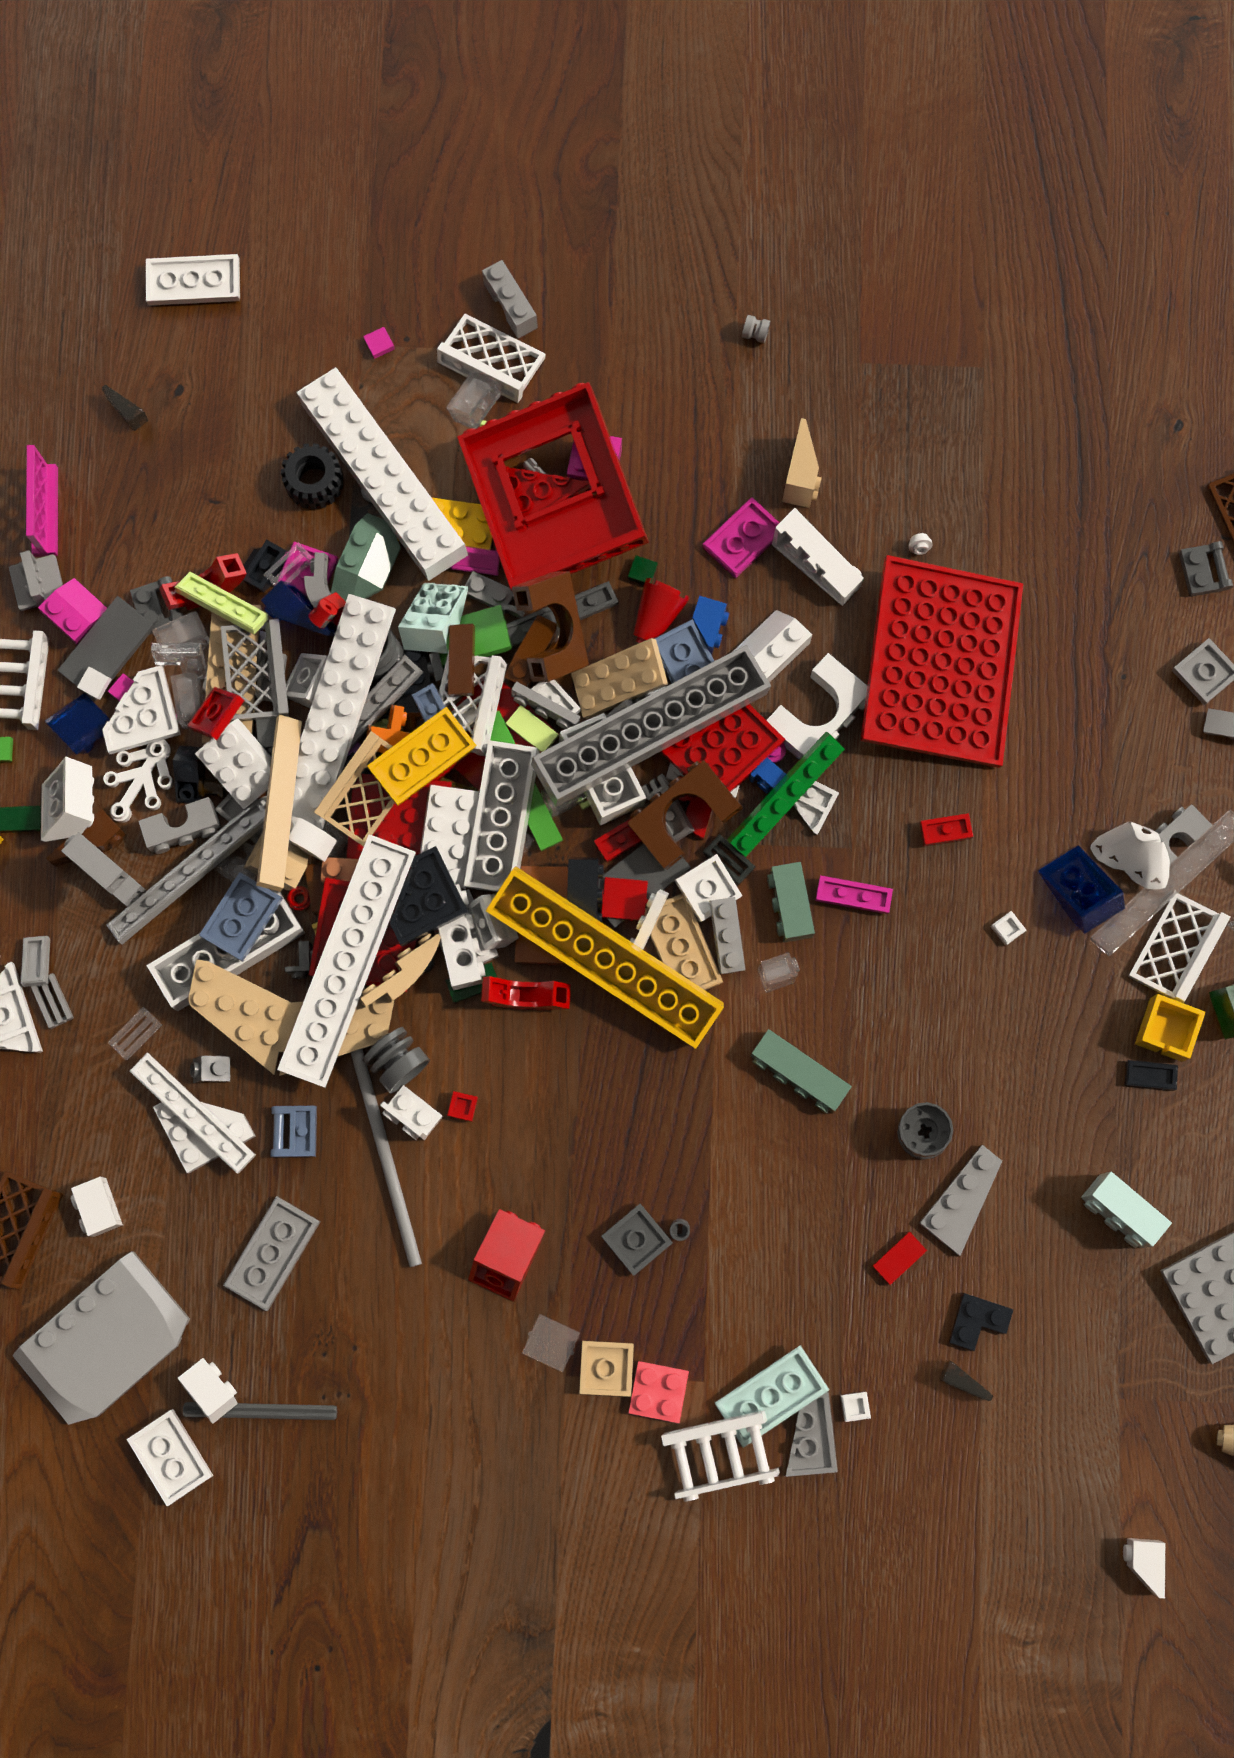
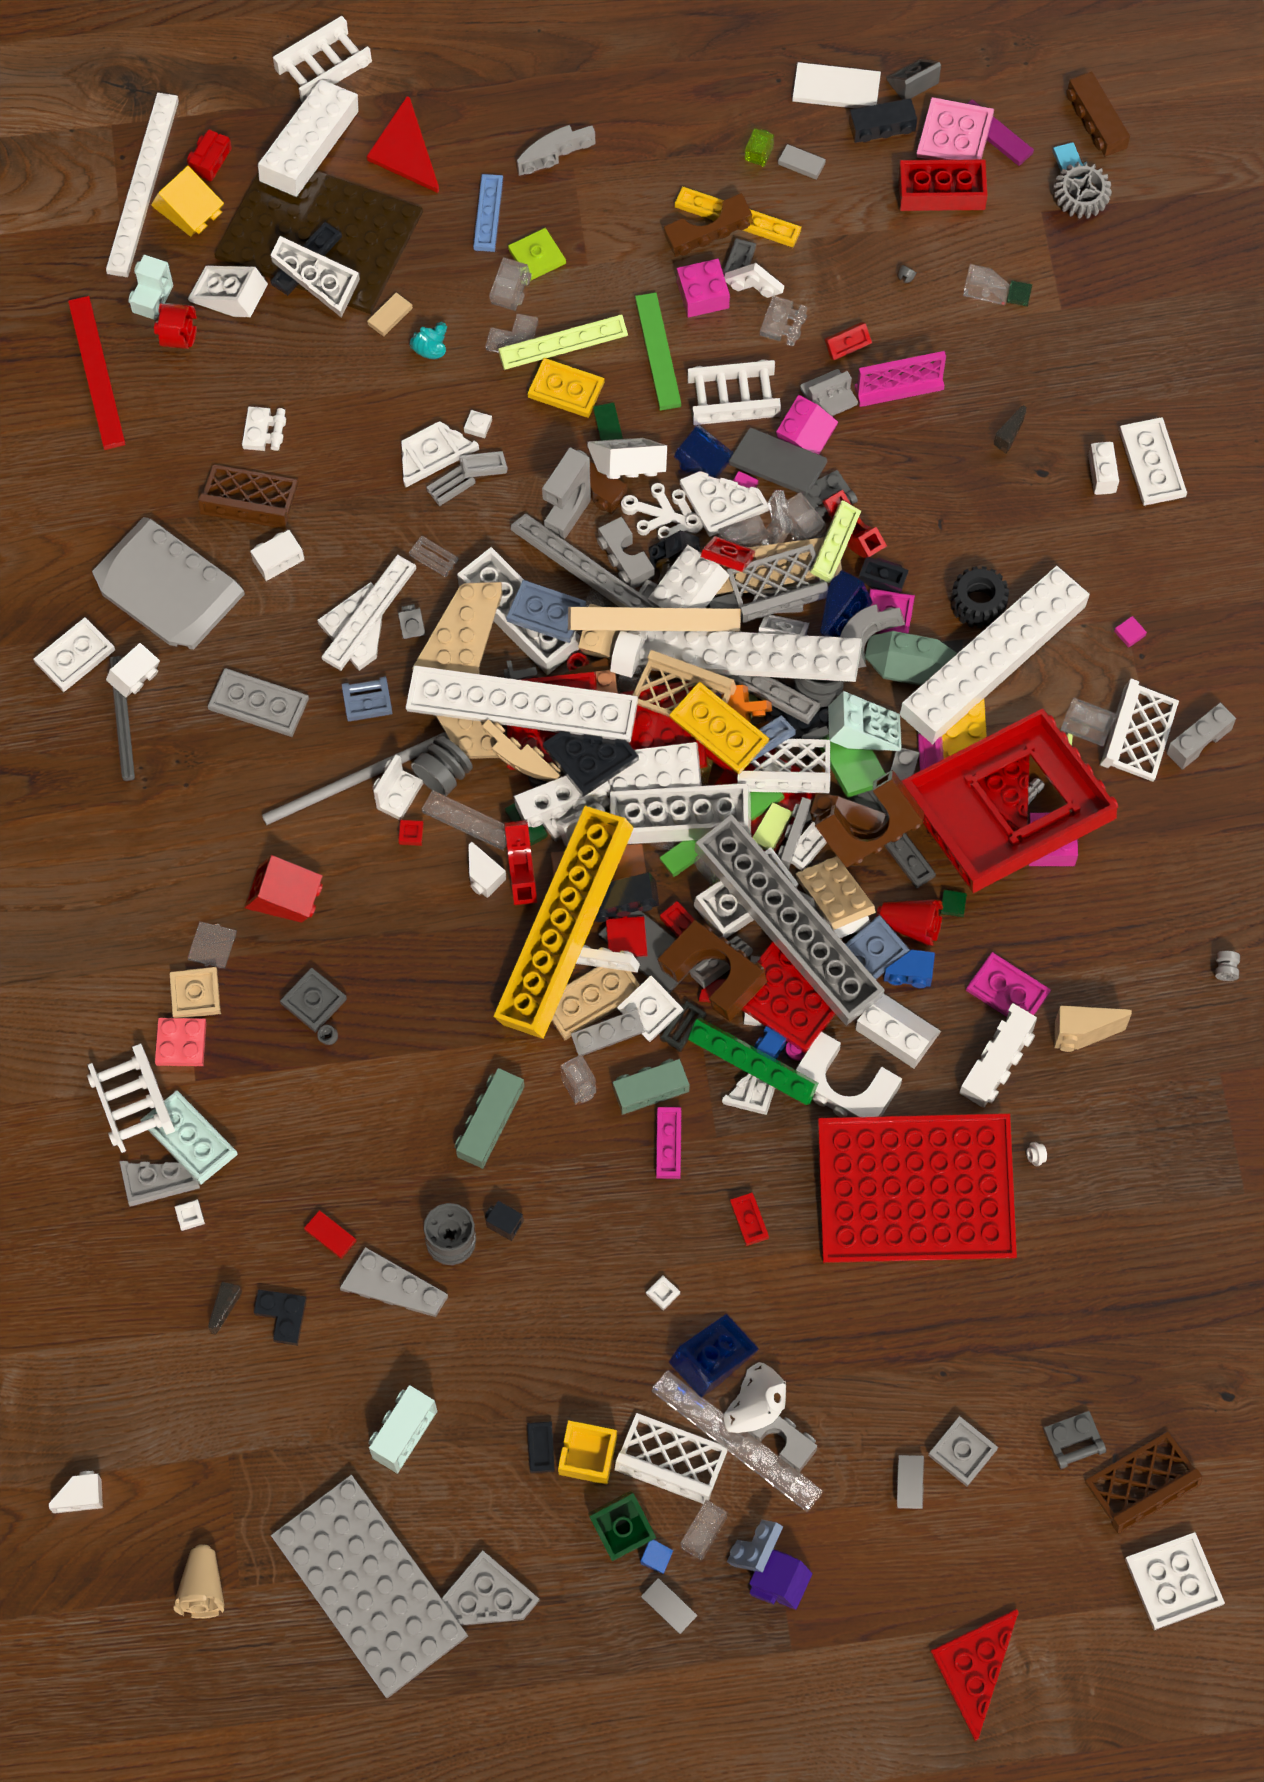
camera: 80 degrees right, 10 degrees down
(94, 683) = (742, 457): white tile -> none
(191, 327) = (1103, 468): none -> white brick
(275, 580) = (901, 603): clear tile -> none
(327, 610) = (843, 624): red leg -> none
(459, 1044) = (465, 819): none -> clear plate
(461, 660) = (822, 750): reddish brown tile -> none
(523, 1036) = (484, 872): none -> white slope
(913, 1074) = (504, 1220): none -> black brick

